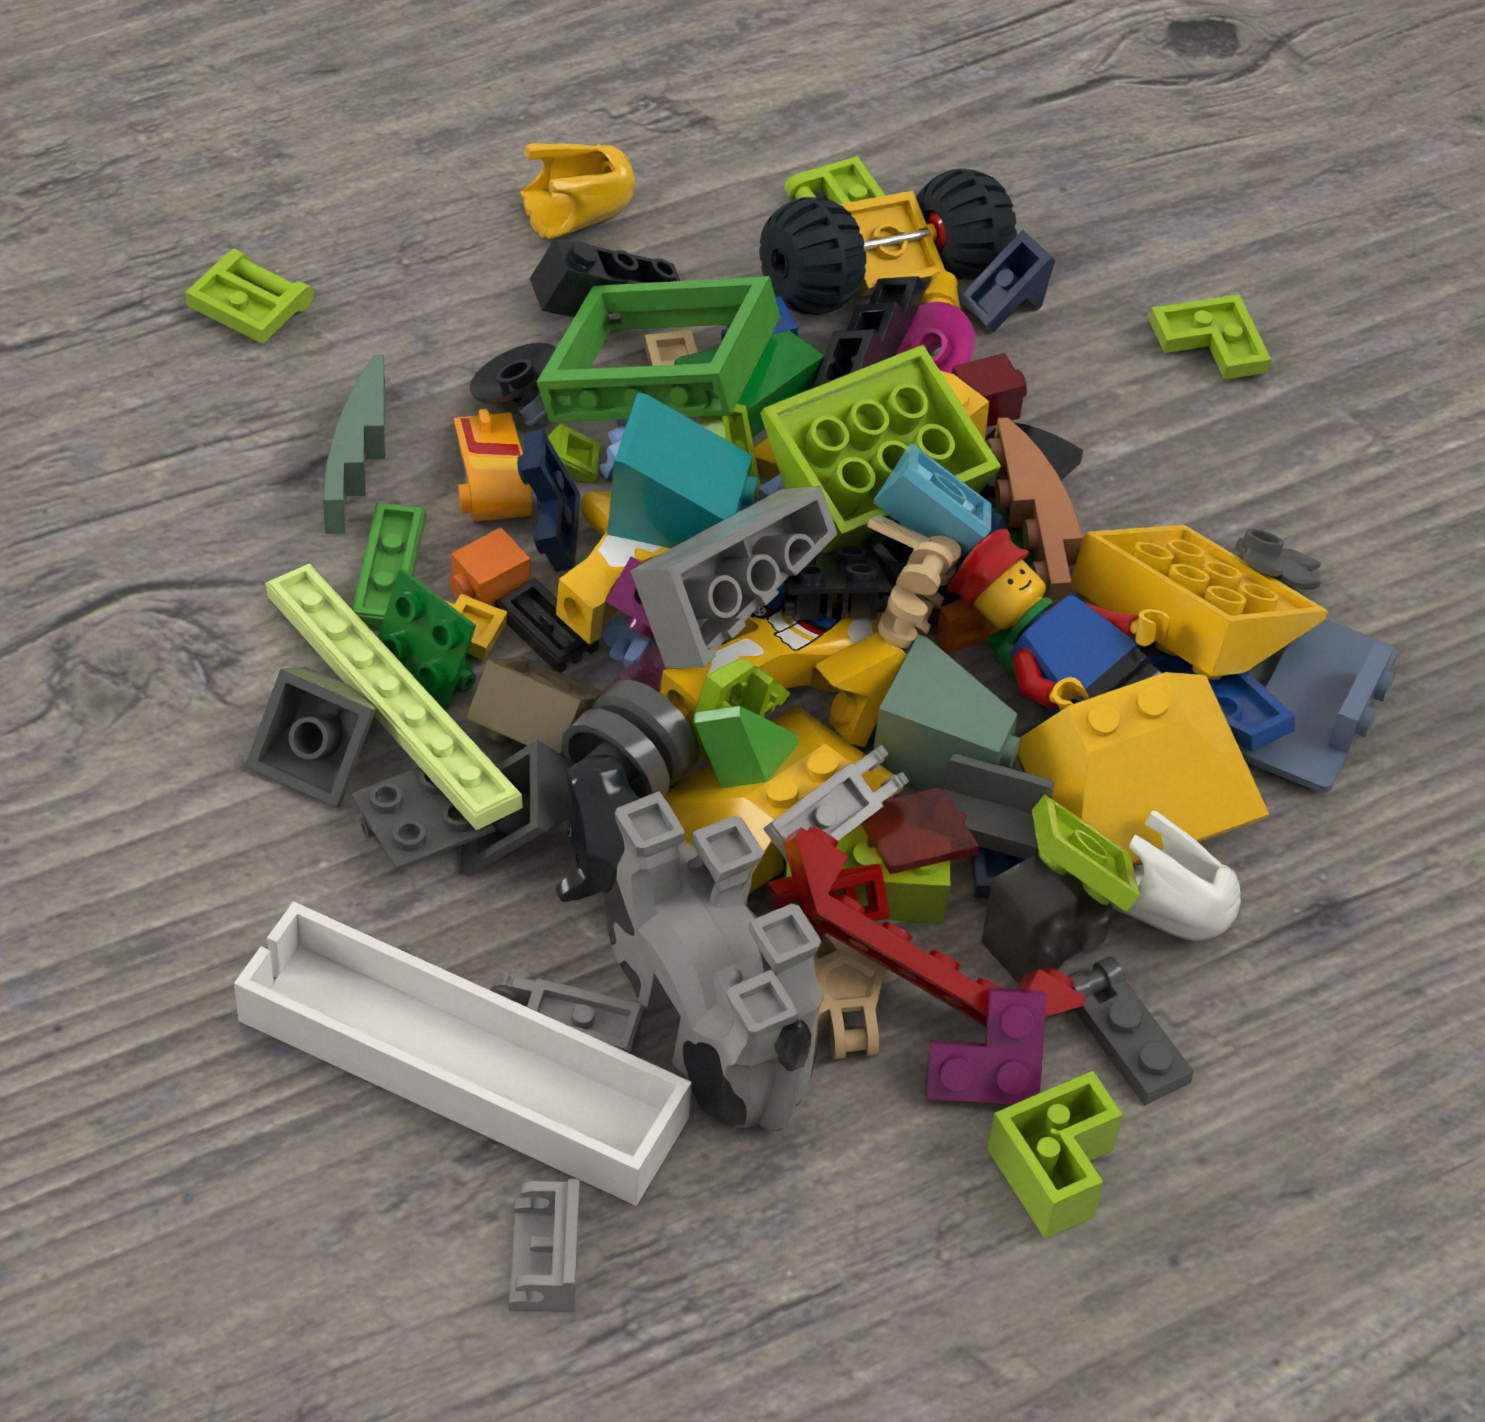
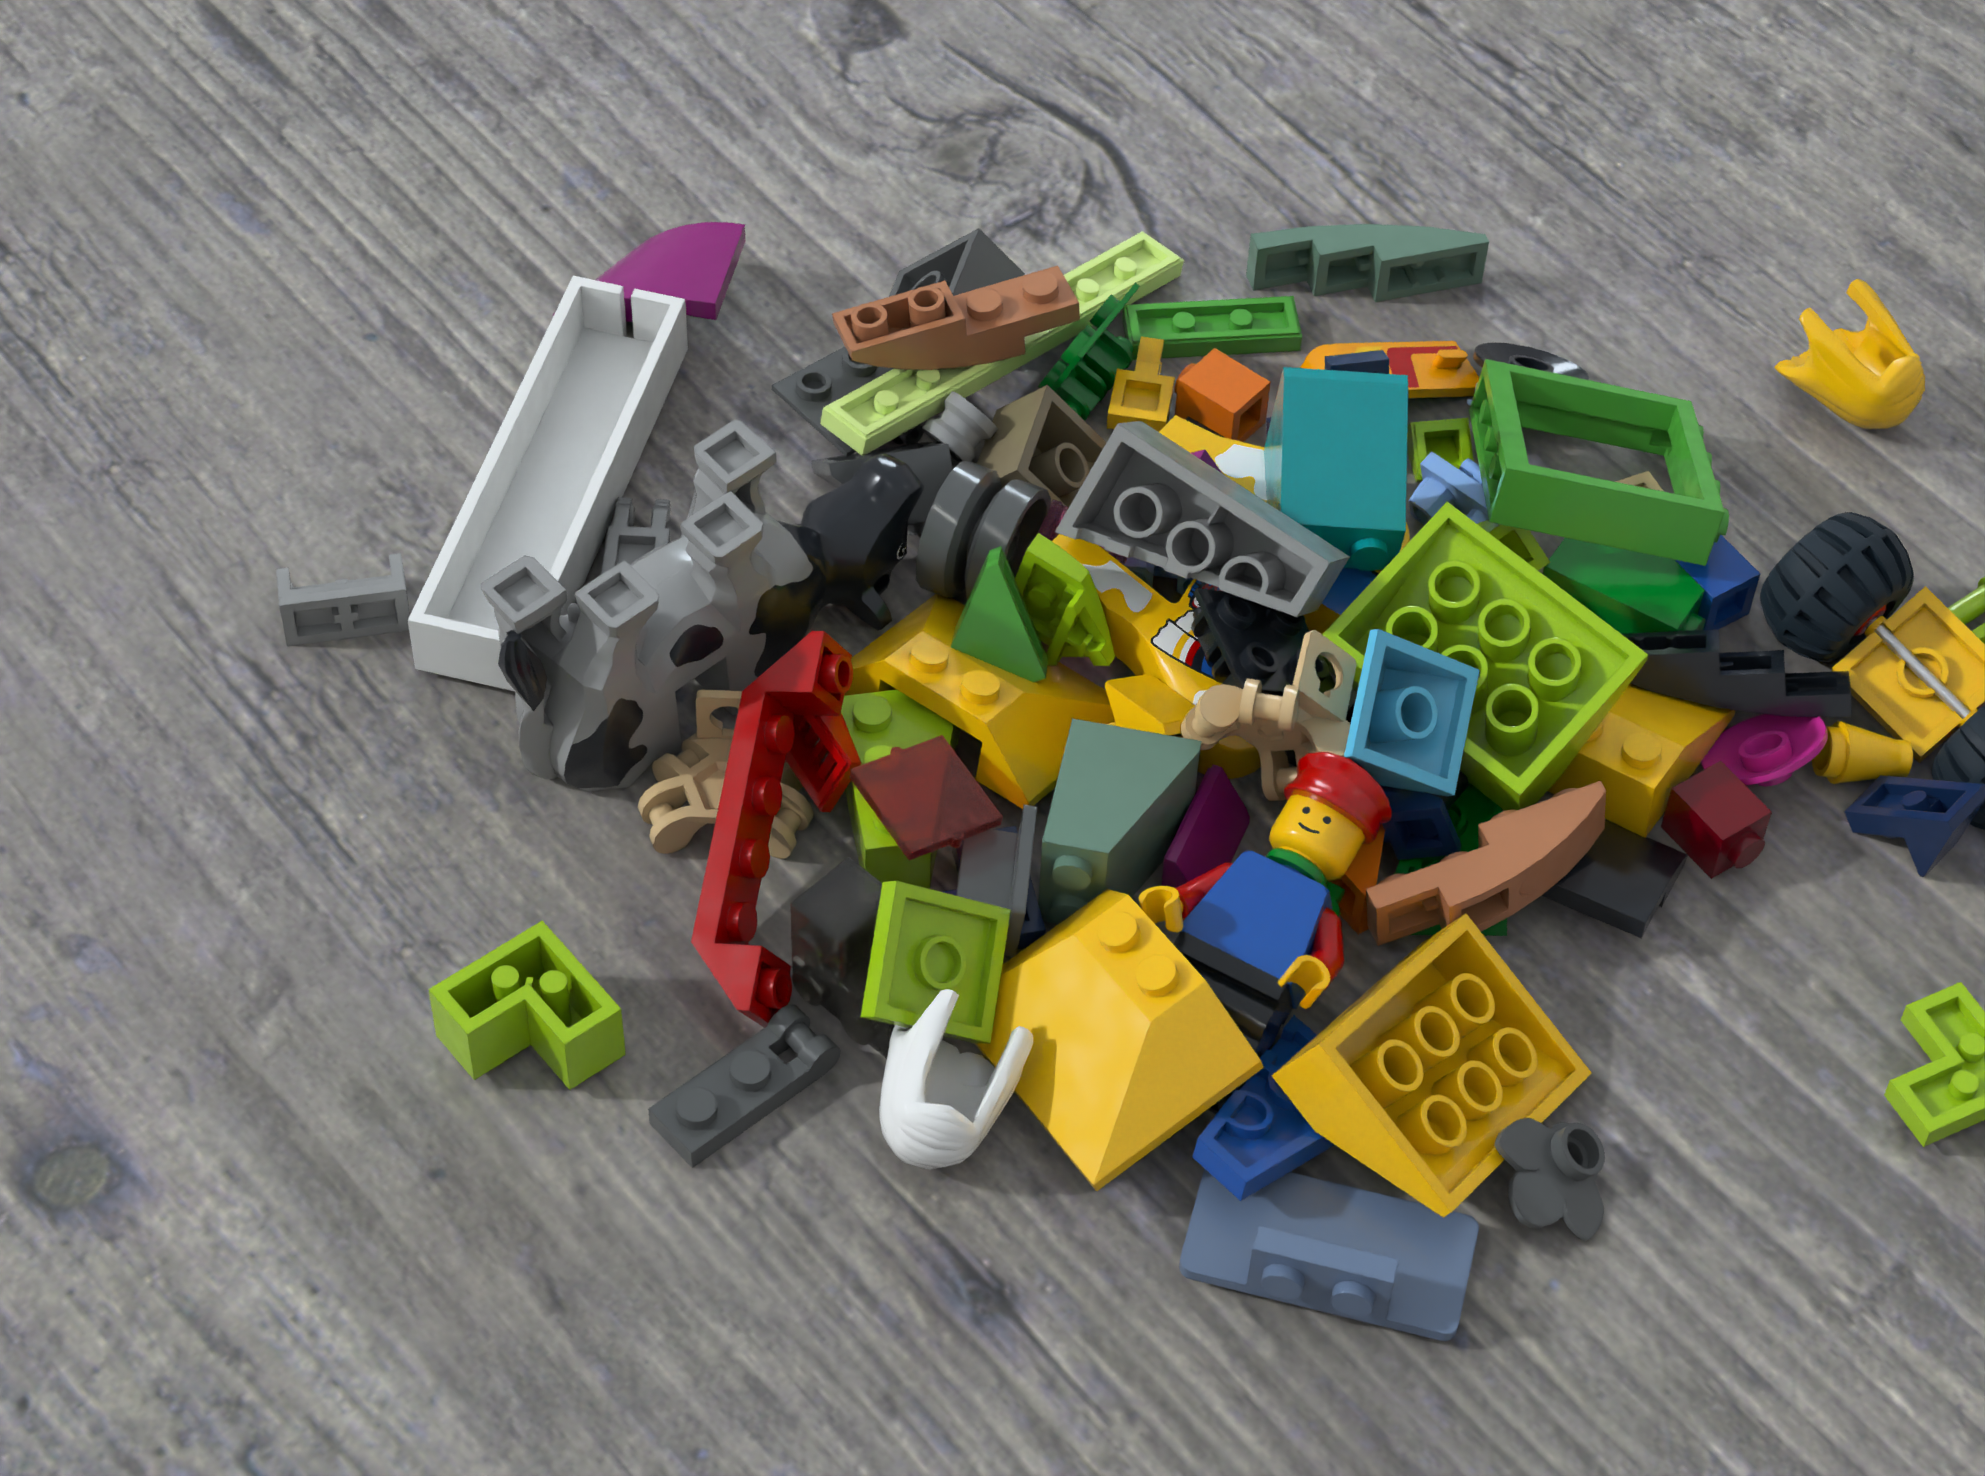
camera: 80 degrees right, 0 degrees up
(213, 931) = (683, 263): none -> magenta slope
(243, 305) = (1537, 132): lime plate -> none
(404, 696) = (945, 331): none -> nougat slope
(496, 737) = (960, 427): none -> light grey wheel
(573, 268) = (1734, 425): black slope -> none
(837, 803) = (915, 699): light grey hinge -> none
(1003, 1067) = (653, 945): magenta plate -> none

